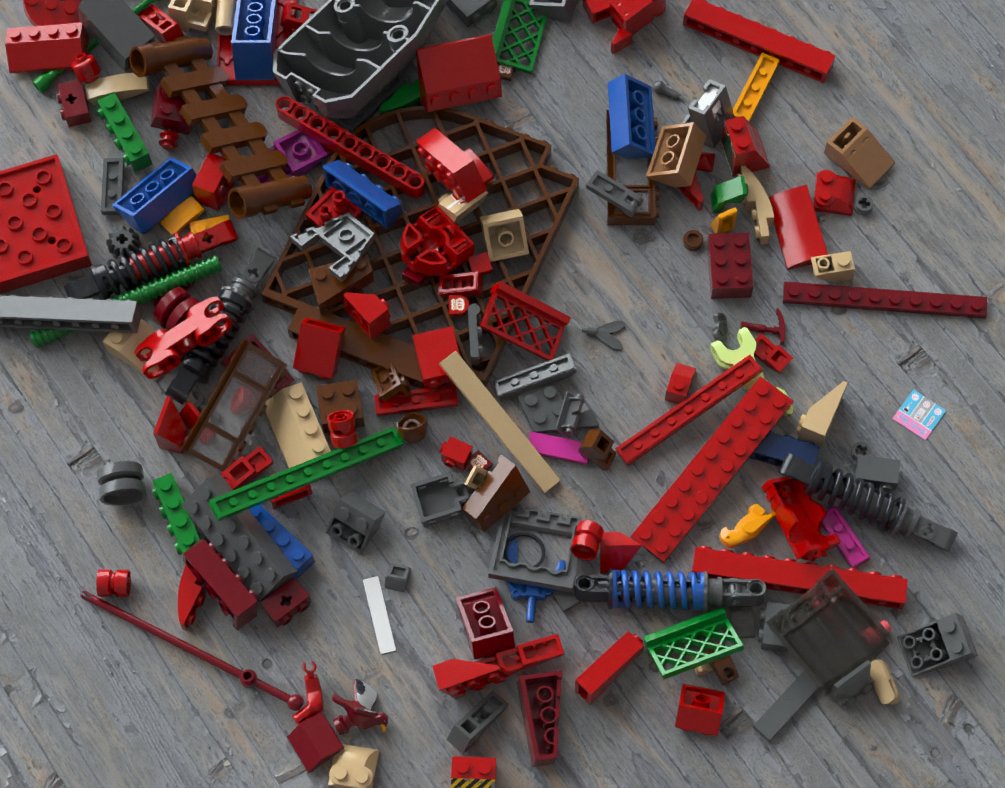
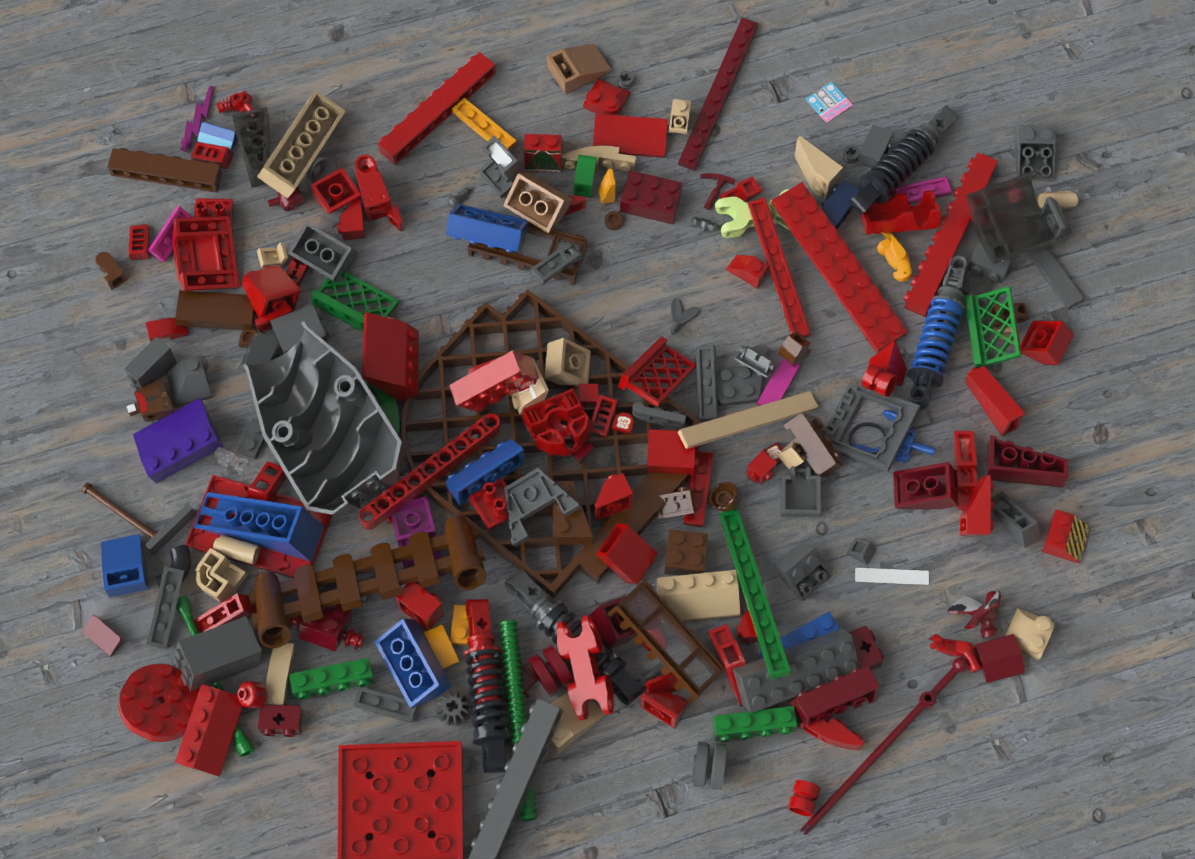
camera: 75 degrees left, 0 degrees up
(342, 429) = (717, 552): red wheel -> none

